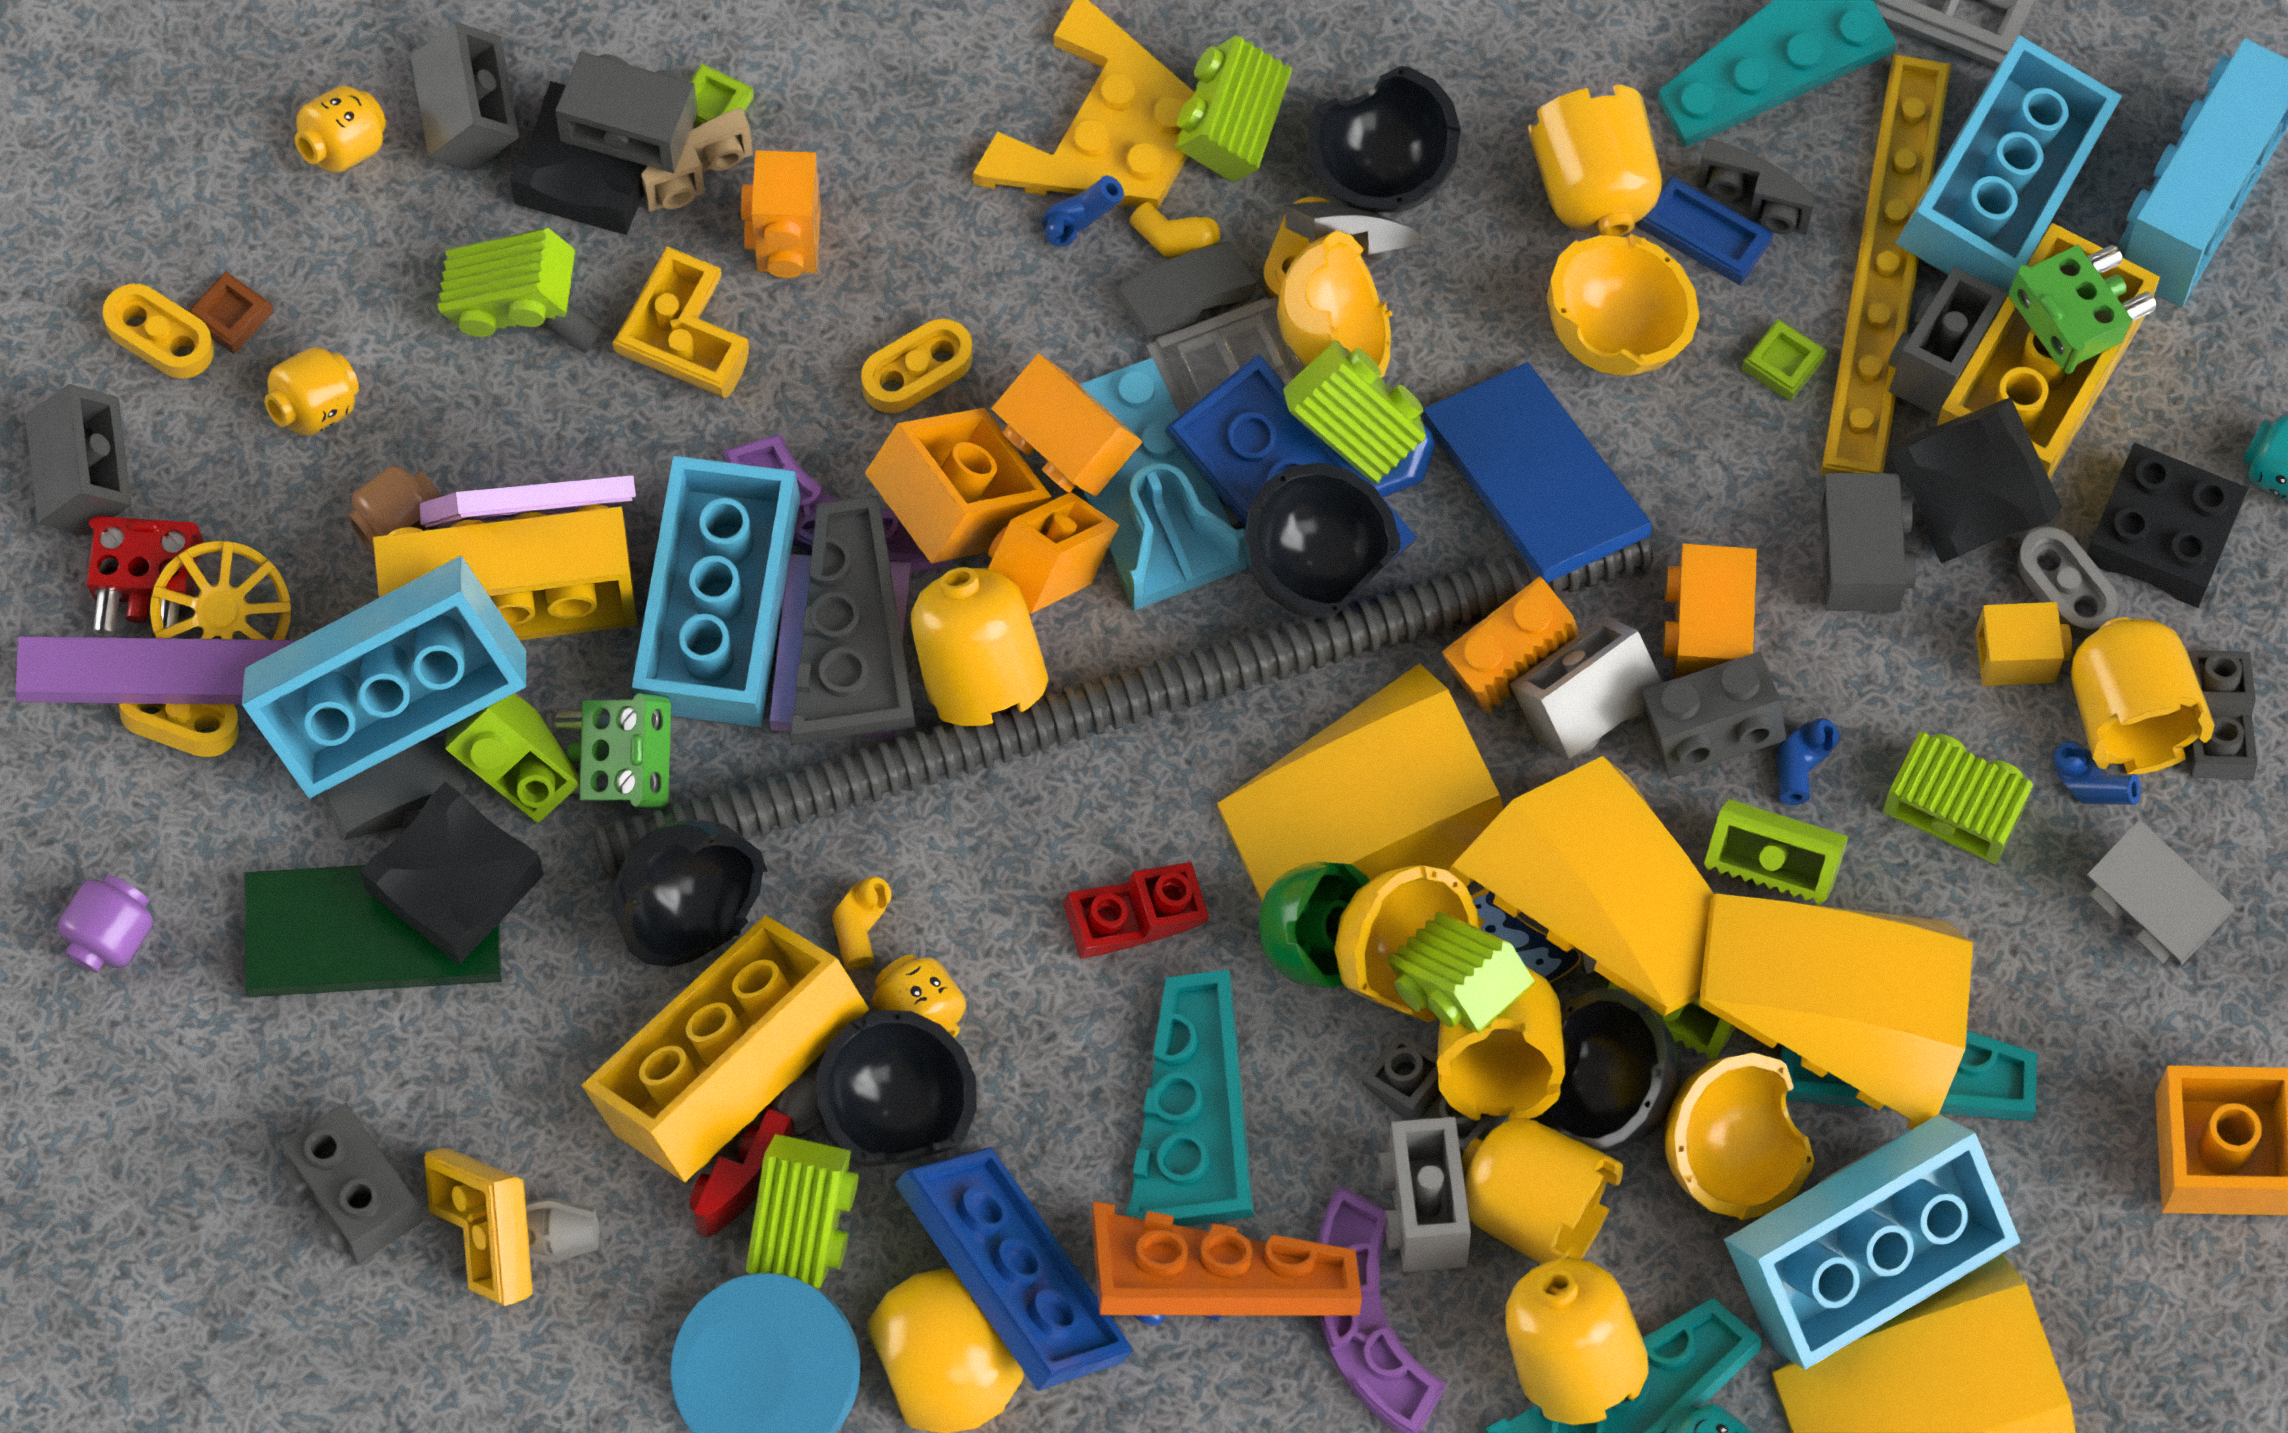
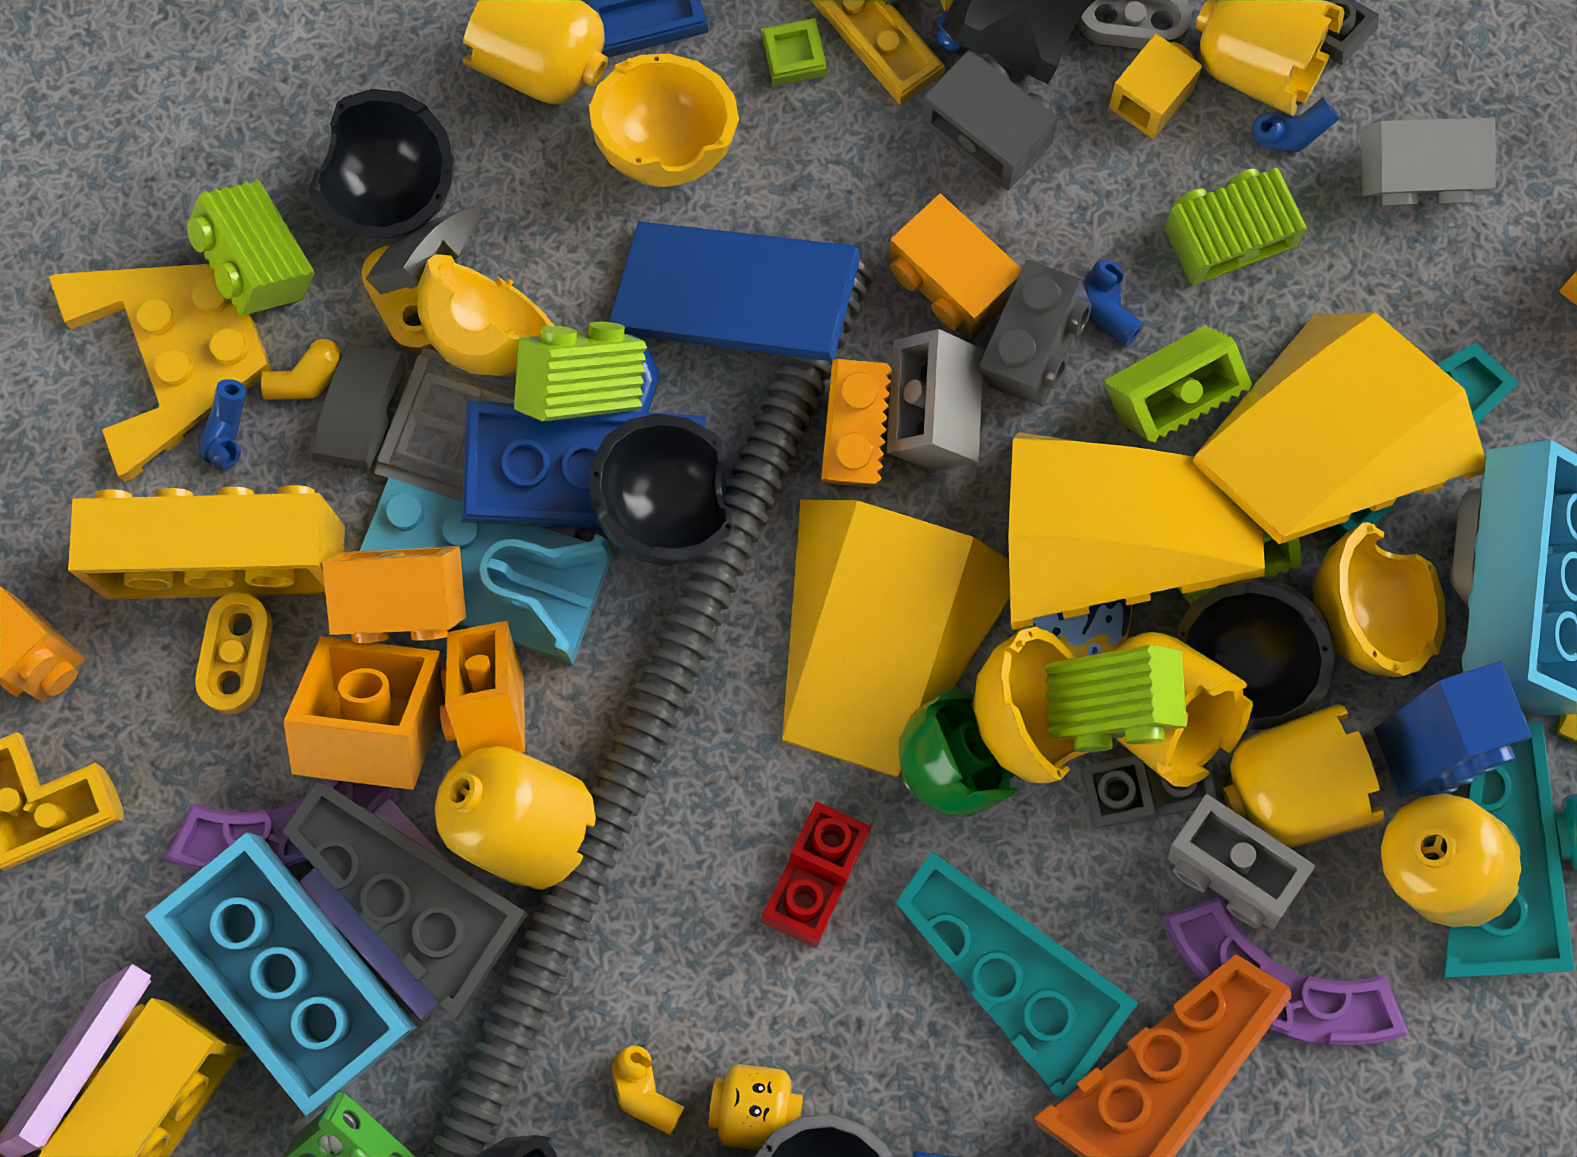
camera: 45 degrees left, 10 degrees up
(977, 268) = (203, 543): none -> yellow brick
(1664, 1235) = (1453, 732): none -> blue brick

